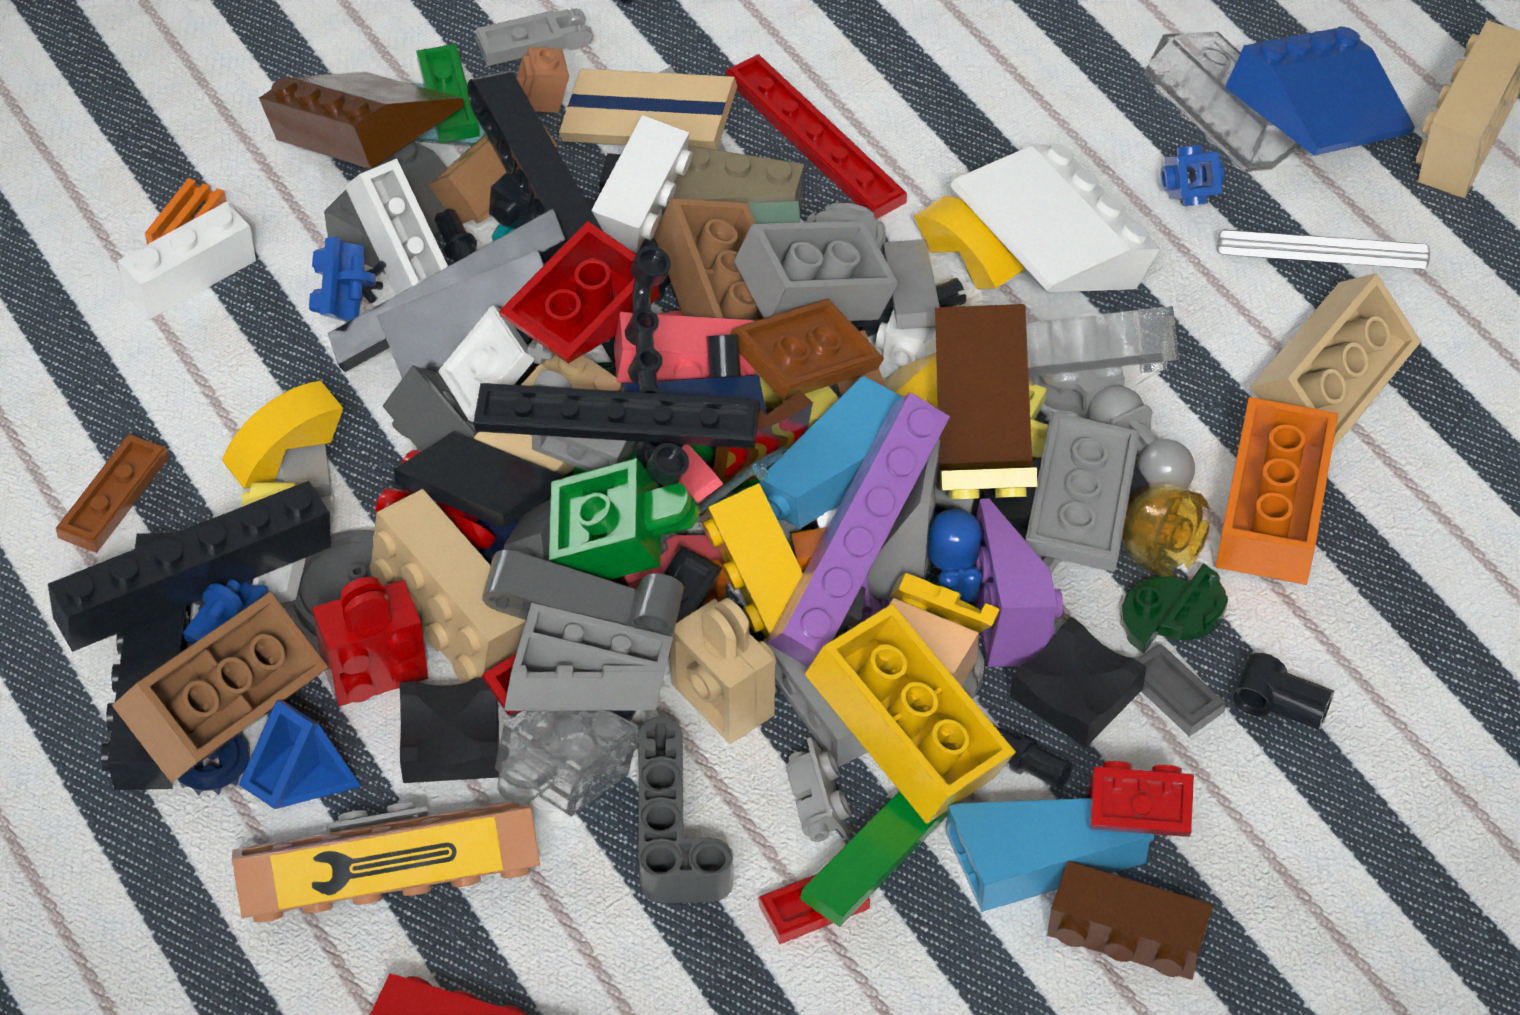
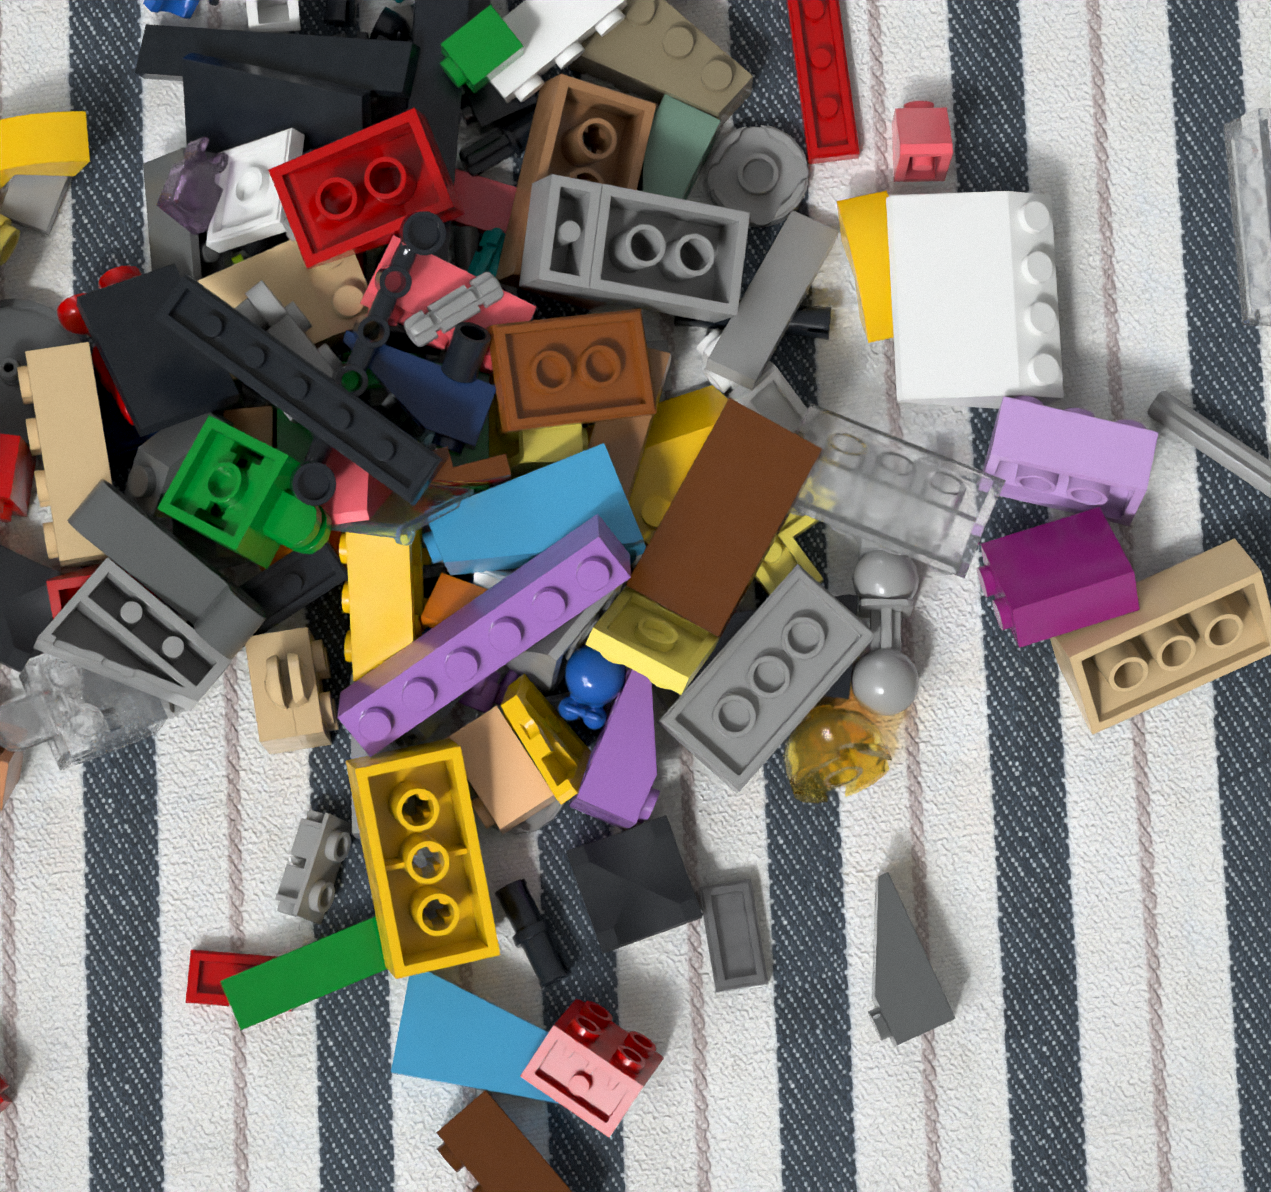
camera: 30 degrees right, 30 degrees up
(439, 382) = (189, 191): none -> clear purple plate
(607, 193) = (480, 50): none -> green brick
(665, 809) = (163, 812): dark grey beam -> none
(694, 333) = (453, 309): none -> light grey axle
(740, 273) = (560, 235): none -> light grey brick
(947, 158) = (921, 142): none -> coral slope
(1147, 607) = (769, 828): dark green plate -> none
(1197, 609) = (815, 858): dark green plate -> none
(1205, 276) = (1070, 458): none -> lavender slope
(1206, 170) = (1176, 306): blue brick -> none
(1240, 348) = (1058, 577): none -> magenta brick
(1268, 687) = (821, 994): black piece -> none
(1277, 491) = (981, 770): orange brick -> none
(1317, 642) = (903, 981): none -> dark grey slope

